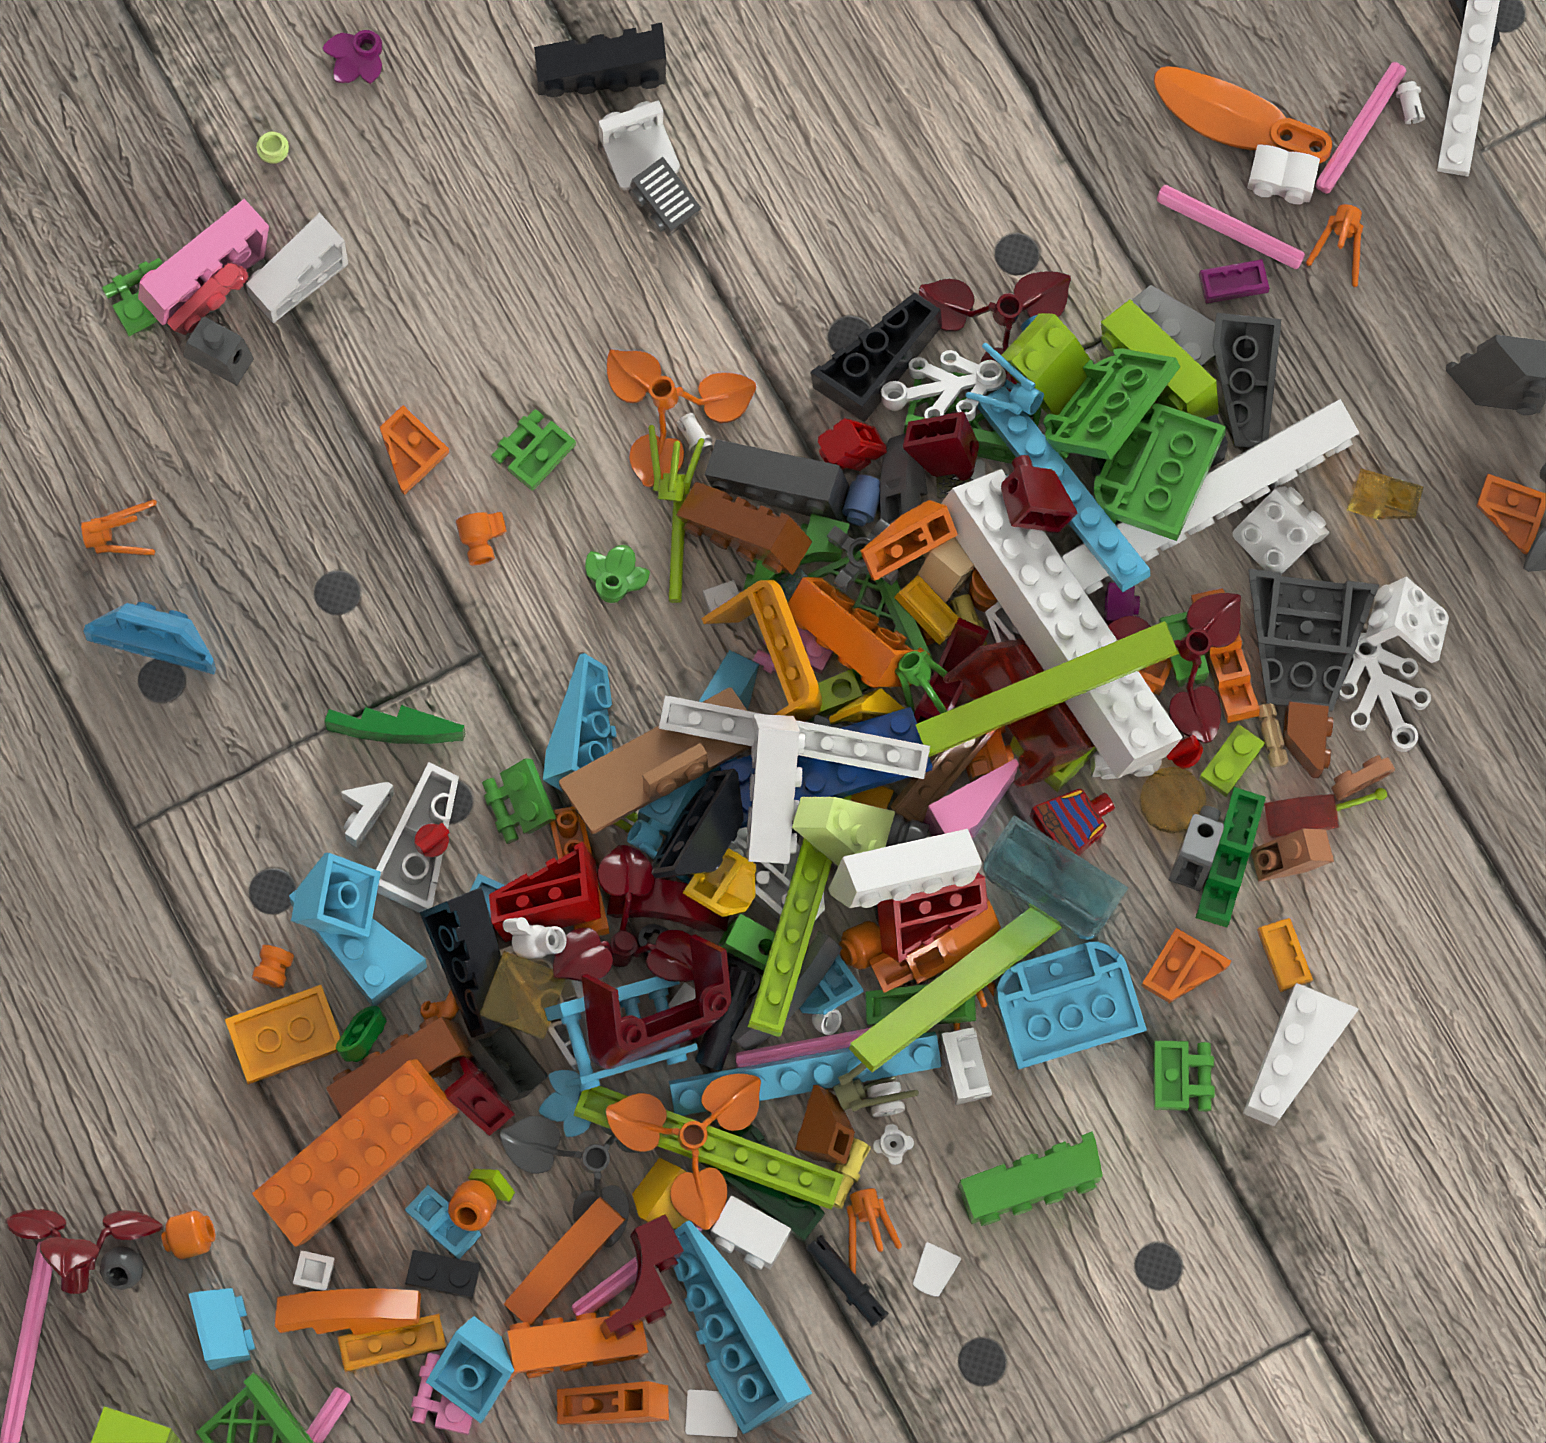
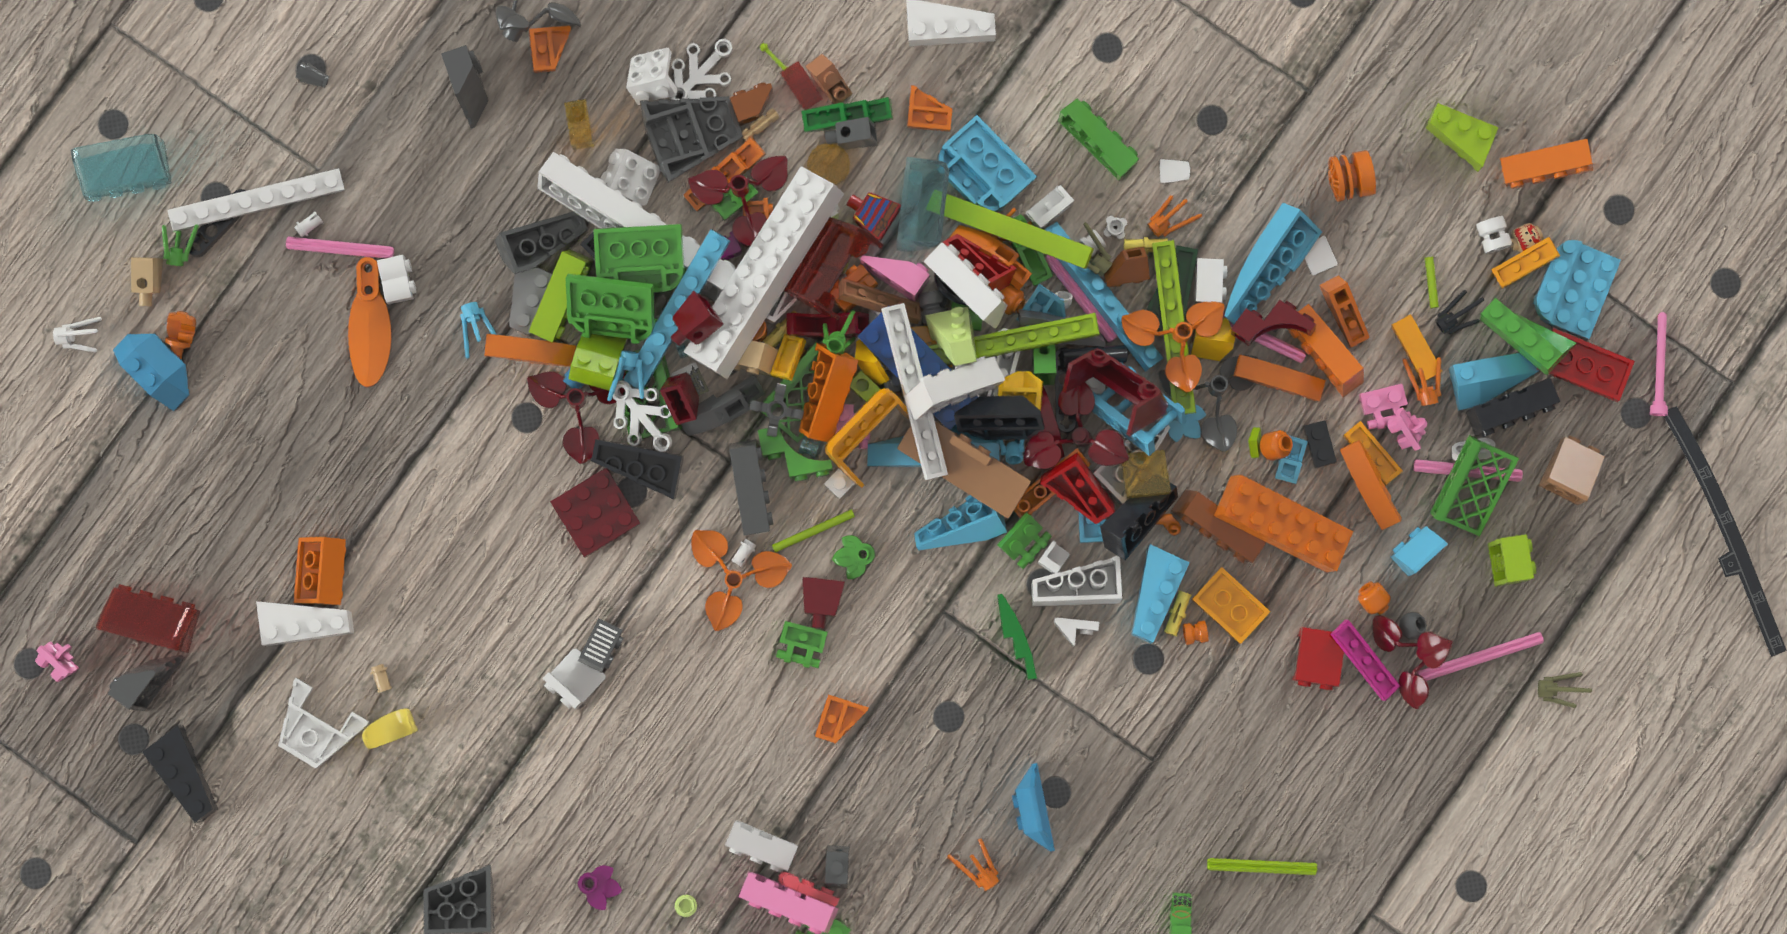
camera: 110 degrees left, 10 degrees up
(109, 1174) = (1365, 660): none -> dark pink tile
(148, 1116) = (1318, 659): none -> red panel
(312, 957) = (1173, 625): none -> light yellow pin
(313, 1271) = (1357, 516): white plate -> none
(337, 897) = (1145, 609): medium azure slope -> none
(361, 1034) = (1210, 559): green plate -> none
(395, 1405) = (1411, 427): none -> bright pink hips
(432, 840) = (1080, 574): red plate -> none
(473, 1369) = (1369, 394): medium azure slope -> none
(475, 532) = (872, 651): orange piece -> none
(475, 829) = (1053, 558): none -> white panel
(478, 1099) = (1213, 470): dark red panel -> none
(508, 1064) = (1185, 466): pearl dark grey bracket -> none
(534, 940) = (1111, 481): white piece -> none
(581, 501) = (821, 599): none -> dark red torso
(602, 63) = (531, 729): black wedge -> none
(671, 486) = (784, 546): lime plant -> none
(744, 527) = (794, 489): dark orange wedge -> none
(844, 277) = (595, 512): none -> dark red plate
(847, 1281) = (1208, 213): black pin -> none
(851, 445) = (708, 452): red brick -> none
(862, 500) = (735, 431): medium blue brick -> none
(908, 538) = (756, 385): orange slope -> none
(1047, 688) = (815, 255): lime tile -> none
(1108, 287) = (529, 350): none -> orange slope
(1171, 1075) = (995, 88): bright green plate -> none
(1186, 752) = (794, 165): red plate -> none
(1190, 244) = (471, 313): none -> medium azure plant
(1230, 227) = (446, 288): bright pink axle -> none
(1232, 760) = (786, 141): lime plate -> none
(1234, 281) = (481, 277): magenta plate -> none
(1284, 954) = (890, 57): light orange plate -> none
(1345, 225) = (410, 225): orange plant -> none
(1373, 771) = (753, 56): nougat plate -> none

